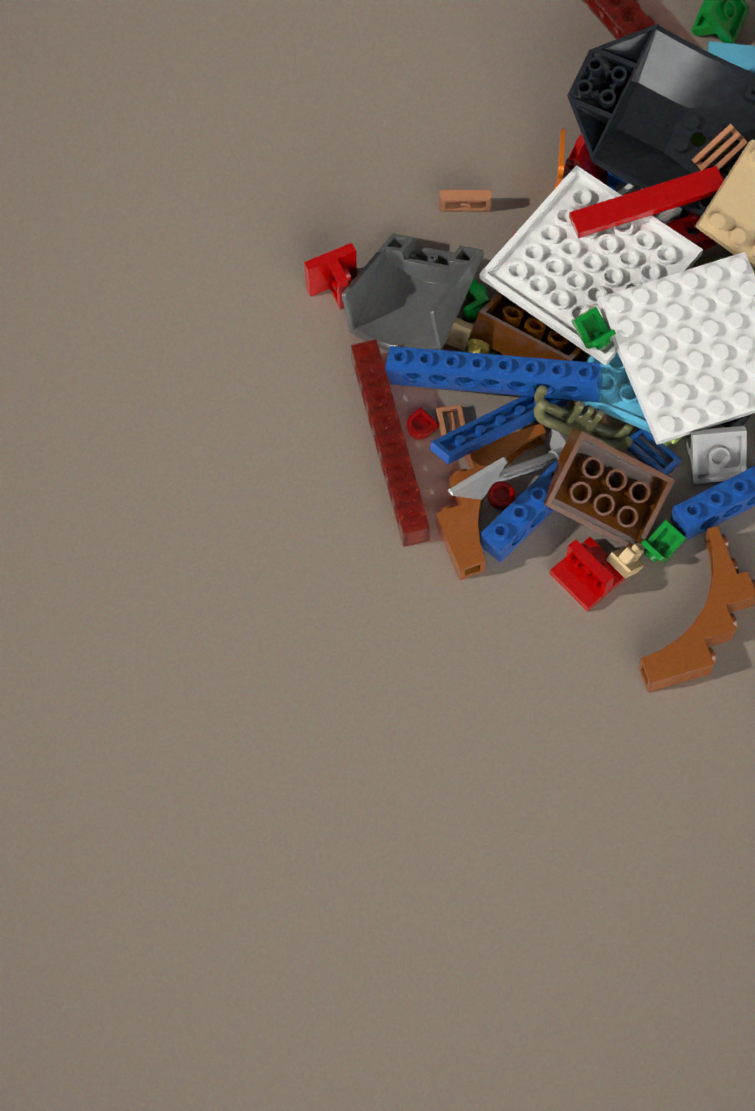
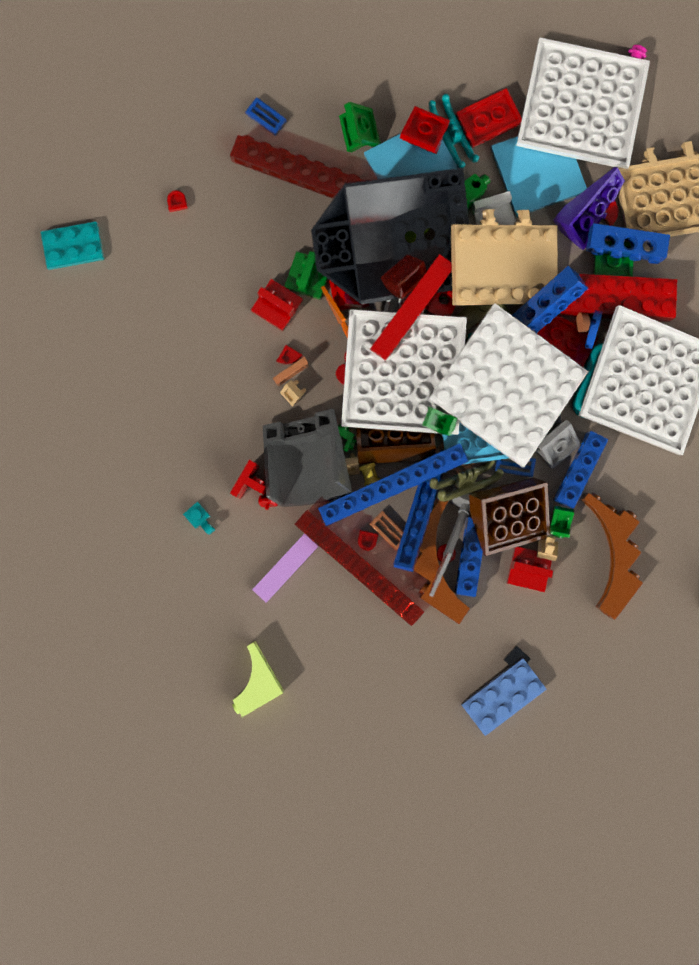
camera: 30 degrees left, 20 degrees up
(181, 495) = (262, 684): none -> yellowish green arch
(249, 283) = (198, 517): none -> teal plate
(305, 394) = (285, 568): none -> lavender tile
(337, 314) = (265, 502): none -> red piece
(451, 221) = (292, 392): none -> tan tile
(454, 691) = (503, 696): none -> medium blue plate
(474, 182) = (288, 356): none -> red tile
(499, 128) = (276, 304): none -> red bracket
(501, 662) = (515, 655): none -> black tile
(549, 118) = (304, 276): none -> green bracket
(660, 166) = (404, 276): none -> clear red brick
(715, 142) = (427, 255): nougat tile -> none

